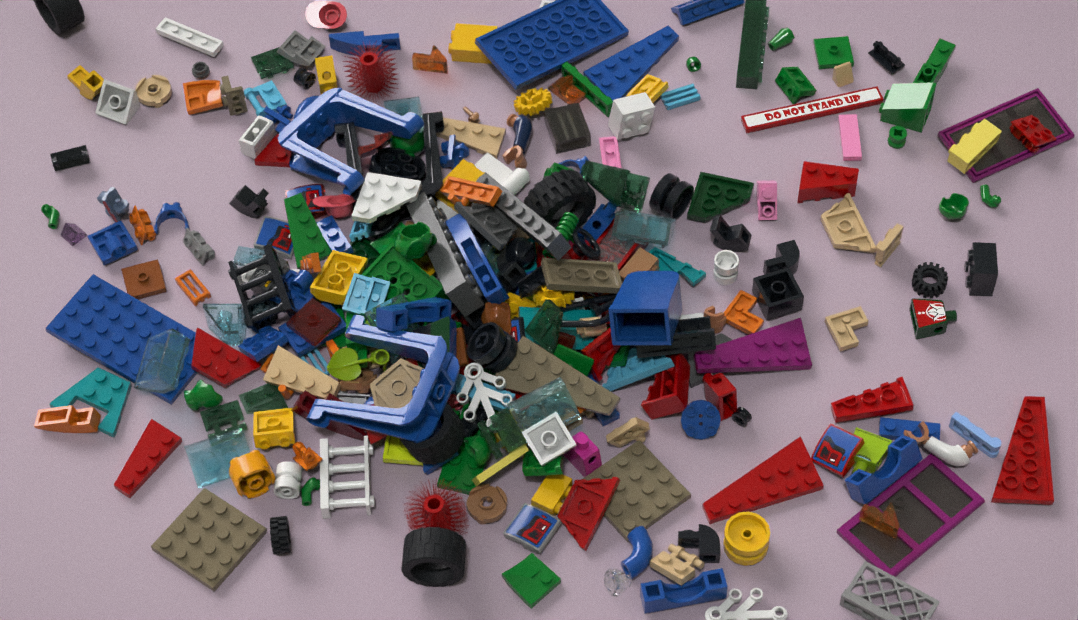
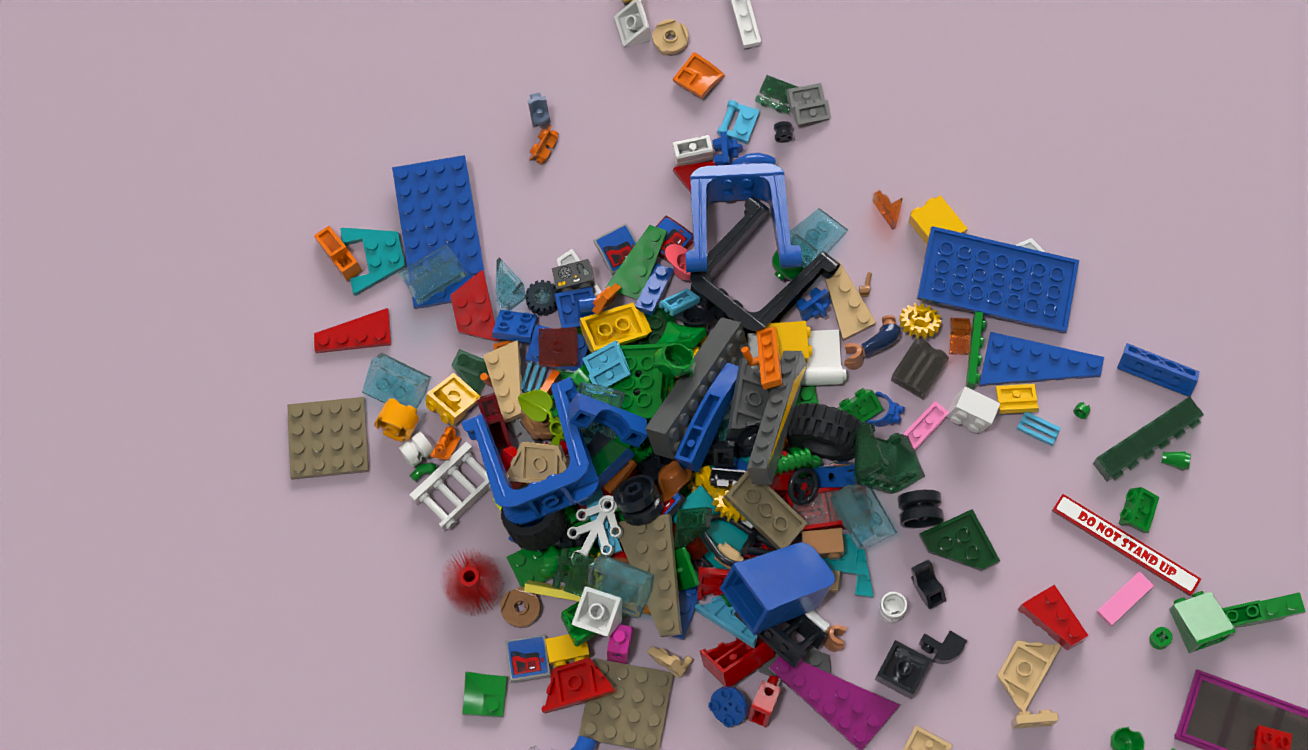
camera: 50 degrees right, 15 degrees up
(52, 214) = (498, 75): green arm -> none
(70, 158) = (555, 39): black hinge -> none
(72, 233) = (494, 105): clear purple slope -> none
(112, 242) = (509, 139): blue plate -> none
(144, 279) = (499, 191): dark orange plate -> none
(168, 212) = (571, 151): blue helmet -> none
(195, 244) = (558, 207): light grey hinge -> none
(200, 70) = (721, 47): dark grey plate -> none
(200, 297) = (520, 244): orange tile -> none
(202, 396) = (432, 325): green hair -> none
(221, 416) = (431, 353): clear green plate -> none
(233, 98) = (710, 98): dark tan bracket -> none
(246, 255) = (585, 248): clear light blue plate -> none
(249, 202) = (630, 200): black brick -> none
(280, 535) = (365, 486): black tyre -> none
(281, 289) = (565, 295): black fence -> none
(326, 14) = (856, 92): coral piece -> none
(326, 80) = (795, 149): yellow torso -> none
(344, 41) = (854, 141): blue slope -> none
(372, 72) = (829, 177): red piece -> none
(381, 141) = (754, 246): clear red slope -> none
(383, 195) = (709, 296): white plate -> none
(397, 163) = (751, 280): black cylinder -> none
(434, 557) = (432, 612): black tyre -> none
(739, 313) = (856, 654): orange plate -> none
(741, 416) = (762, 734): black bush -> none
(767, 200) = (993, 584): bright pink slope -> none
(832, 52) = (1205, 513): green plate -> none
(843, 74) = (1186, 541): tan slope -> none
(886, 58) = (1241, 561): black hinge -> none
(973, 145) = (1206, 711): light yellow brick -> none

